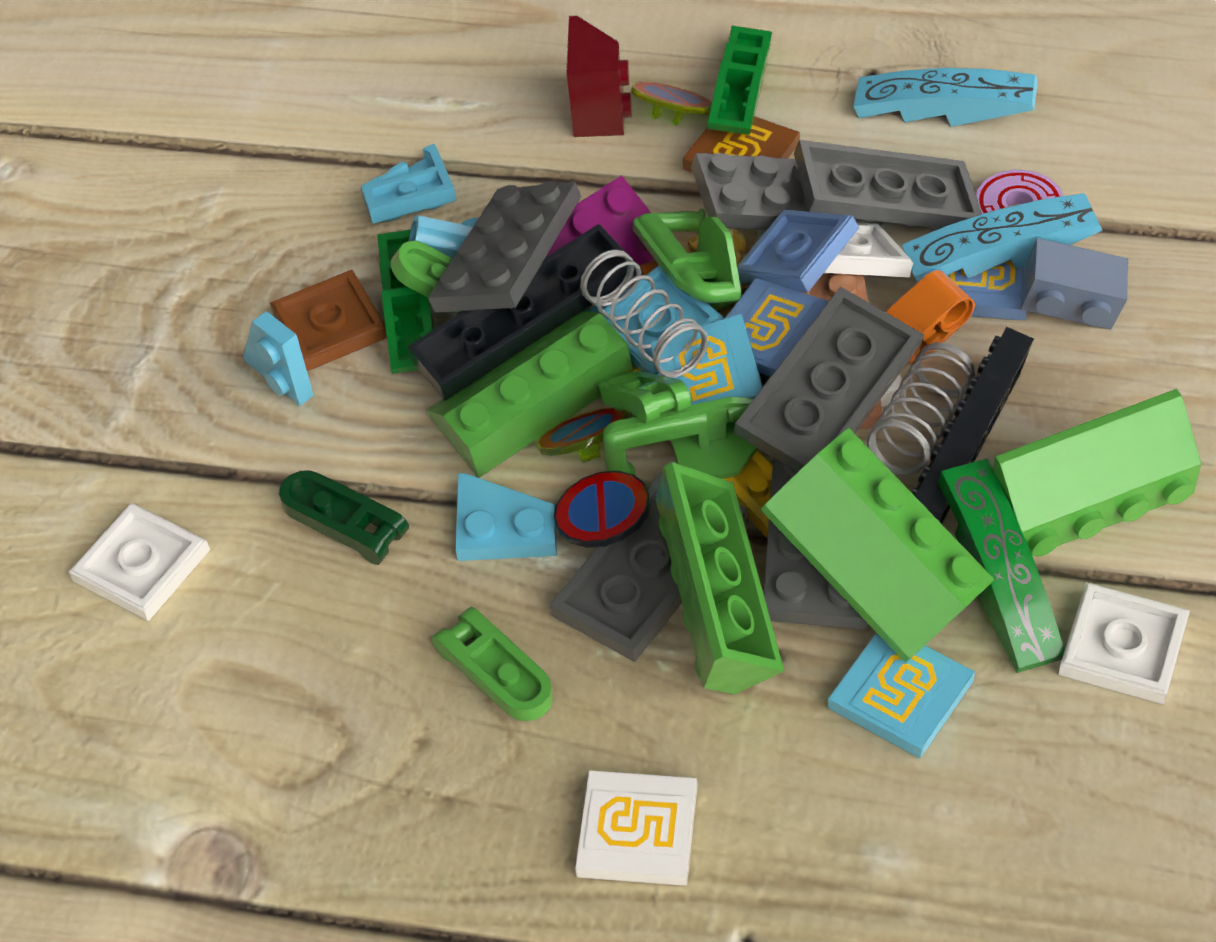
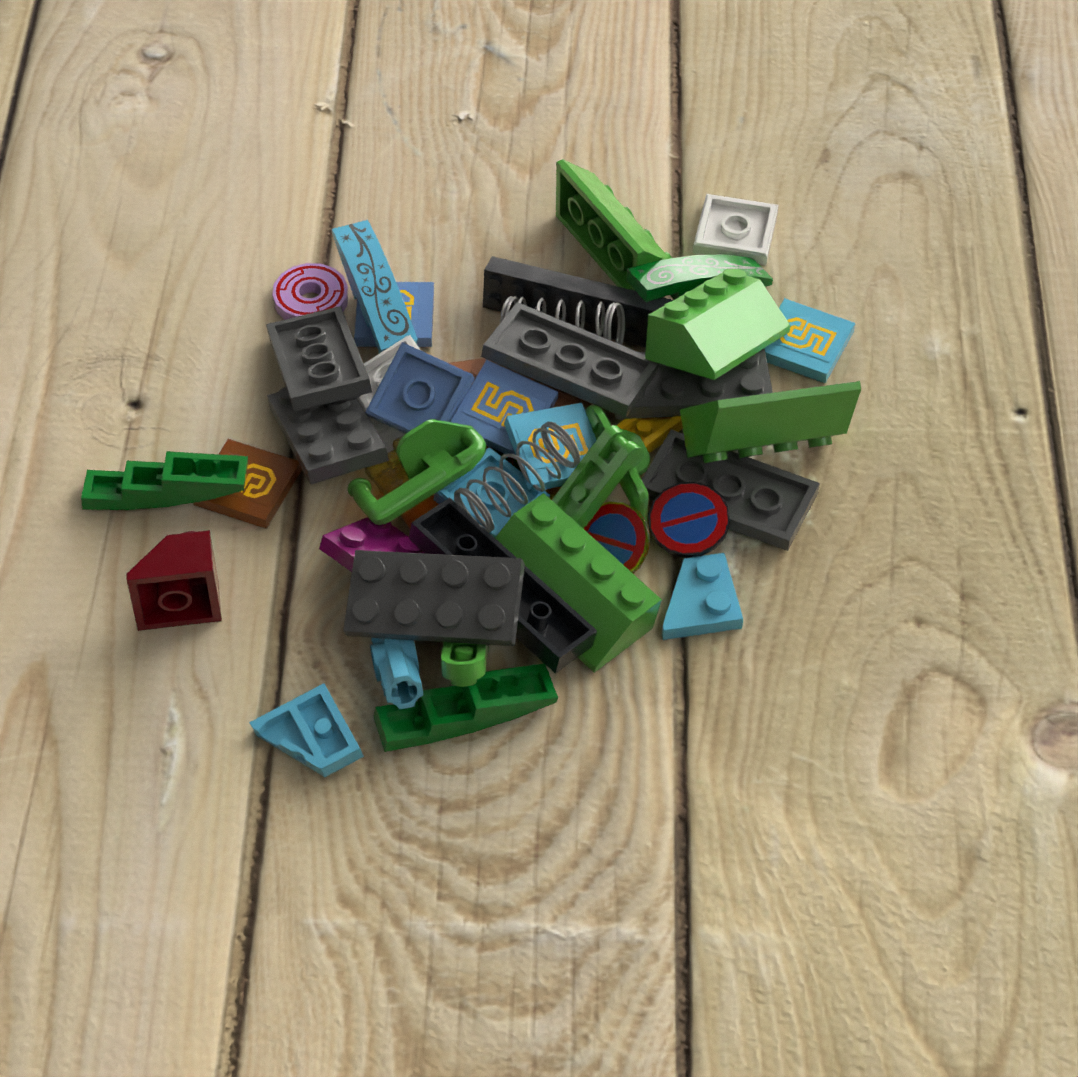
camera: 105 degrees left, 0 degrees up
(139, 561) = (798, 861): white tile -> none
(277, 356) = (567, 781): medium azure wing -> none
(331, 319) = (490, 773): dark orange tile -> none
(341, 514) = (721, 711): dark green plate -> none
(496, 666) = (846, 574): bright green plate -> none
(637, 828) = (957, 474): white tile -> none
(671, 98) = (199, 516): piece -> none
(933, 308) = (453, 330): orange beam -> none
(958, 93) = (181, 340): medium azure slope -> none
(1074, 283) = (415, 247): sand blue brick -> none

